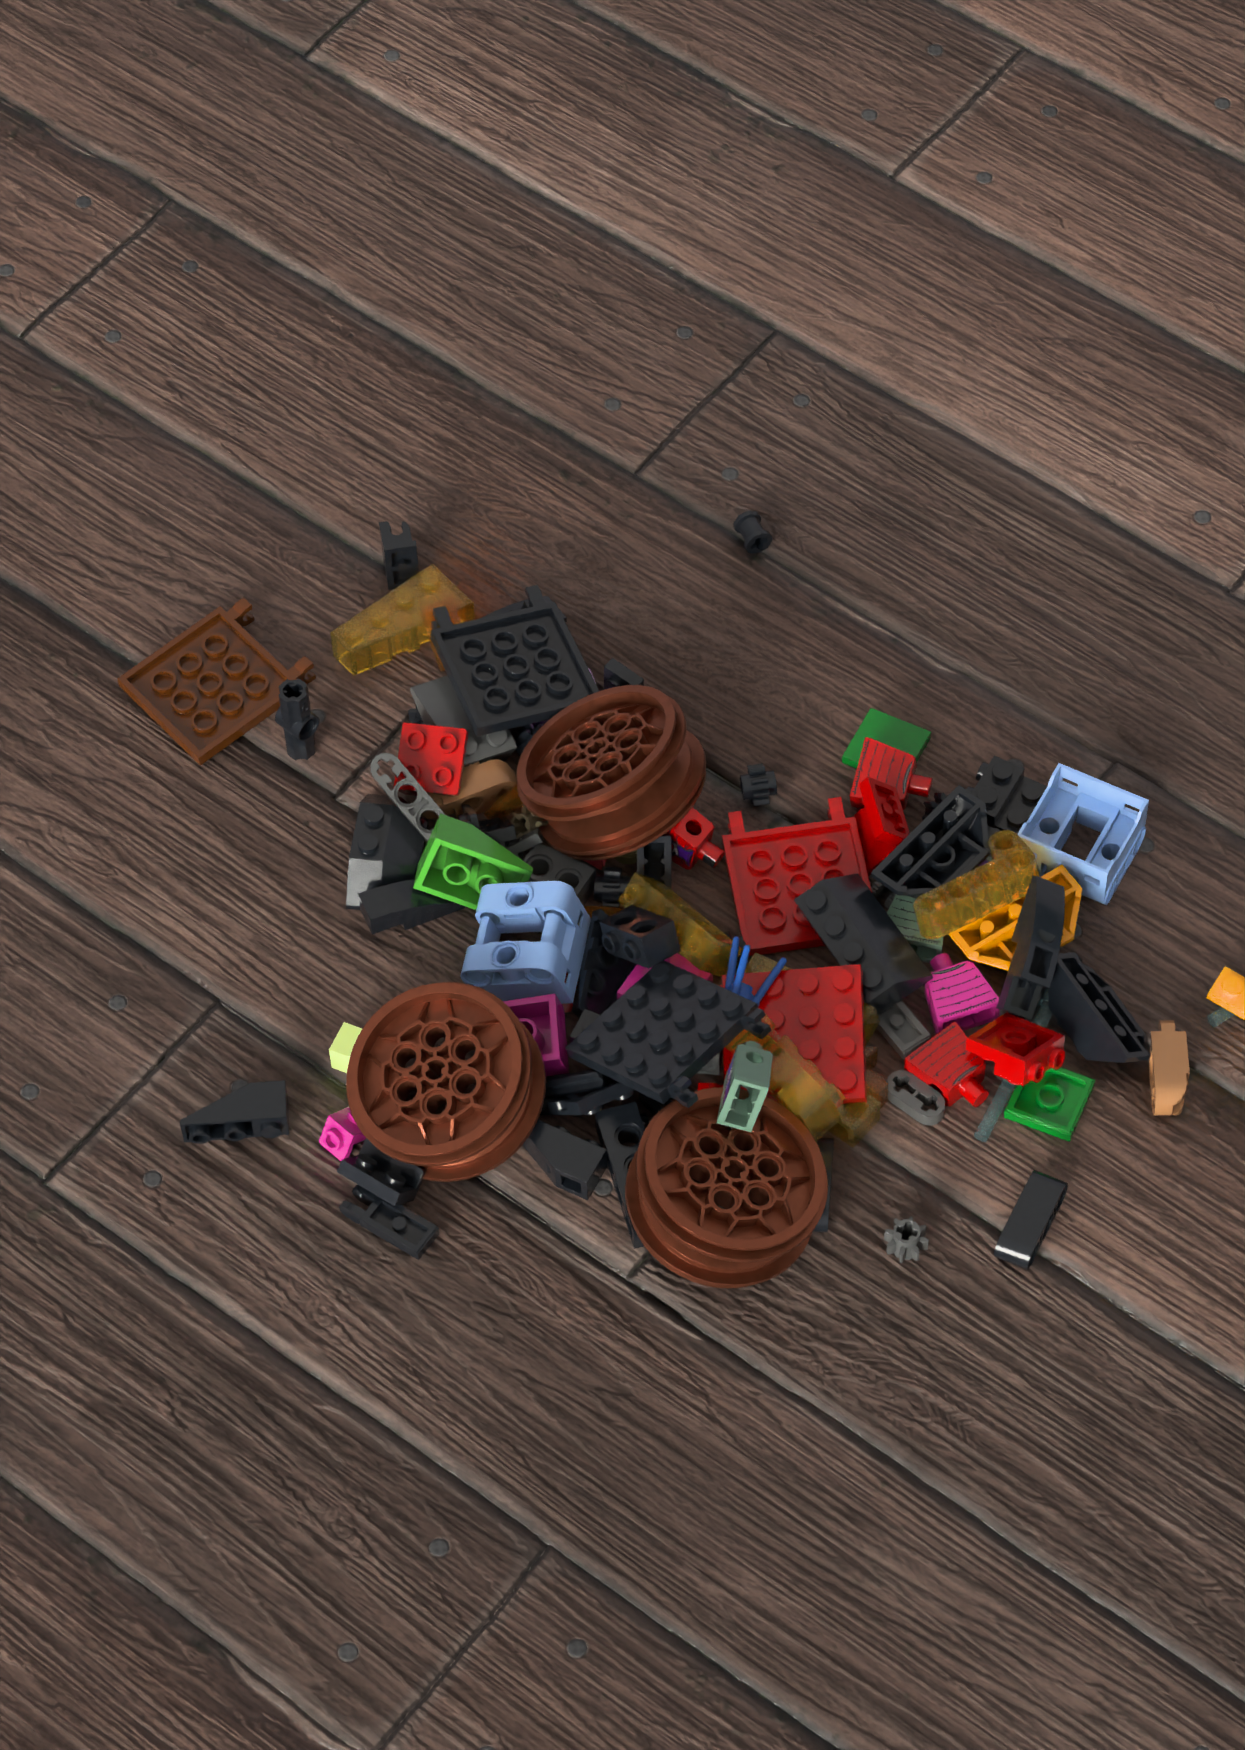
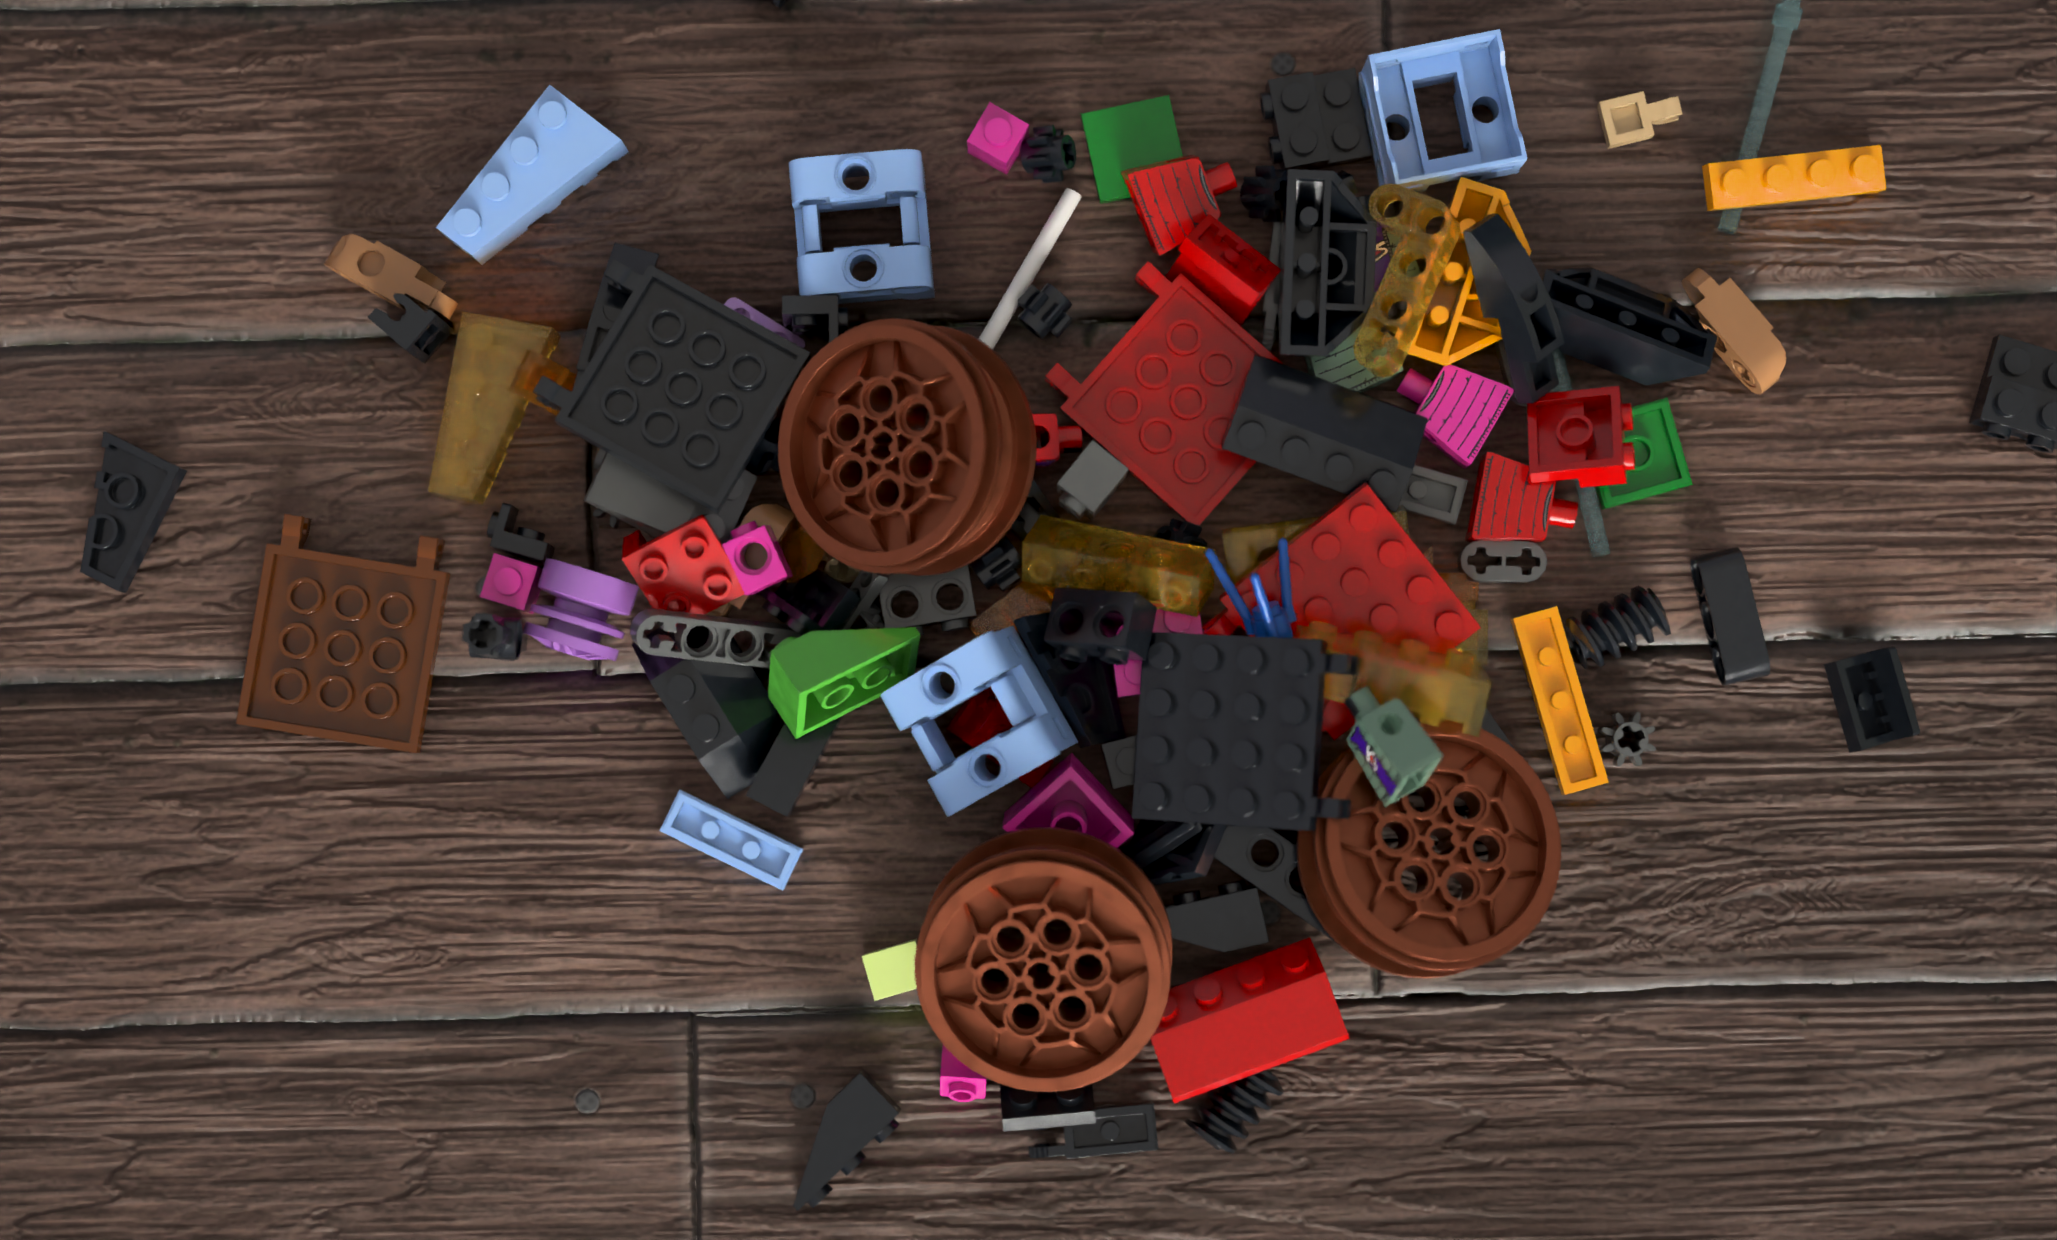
camera: 40 degrees left, 30 degrees up
(167, 545) = (129, 508): none -> black wing
(328, 927) = (731, 839): none -> light blue tile
(335, 714) = (512, 583): none -> dark pink brick
(353, 745) = (580, 610): none -> medium lavender wheel
(355, 698) = (524, 544): none -> black bracket
(404, 508) = (389, 272): none -> medium nougat piece
(478, 789) = (774, 570): none -> dark pink brick
(487, 1262) = (1233, 1108): none -> black piece
(530, 534) = (530, 175): none -> light blue wedge
(533, 1209) = (1246, 1020): none -> red slope
(704, 877) = (1090, 482): none -> dark grey brick
(713, 646) = (894, 180): none -> light blue piece
(771, 763) = (1030, 267): none -> white bar
(810, 685) = (997, 138): none -> dark pink brick
(832, 710) = (1048, 154): none -> black gear
(883, 1192) = (1559, 700): none -> light orange plate
(954, 1173) = (1616, 625): none -> black piece
(1080, 1325) = (1872, 698): none -> black bracket
(1202, 920) = (1631, 118): none -> tan plate

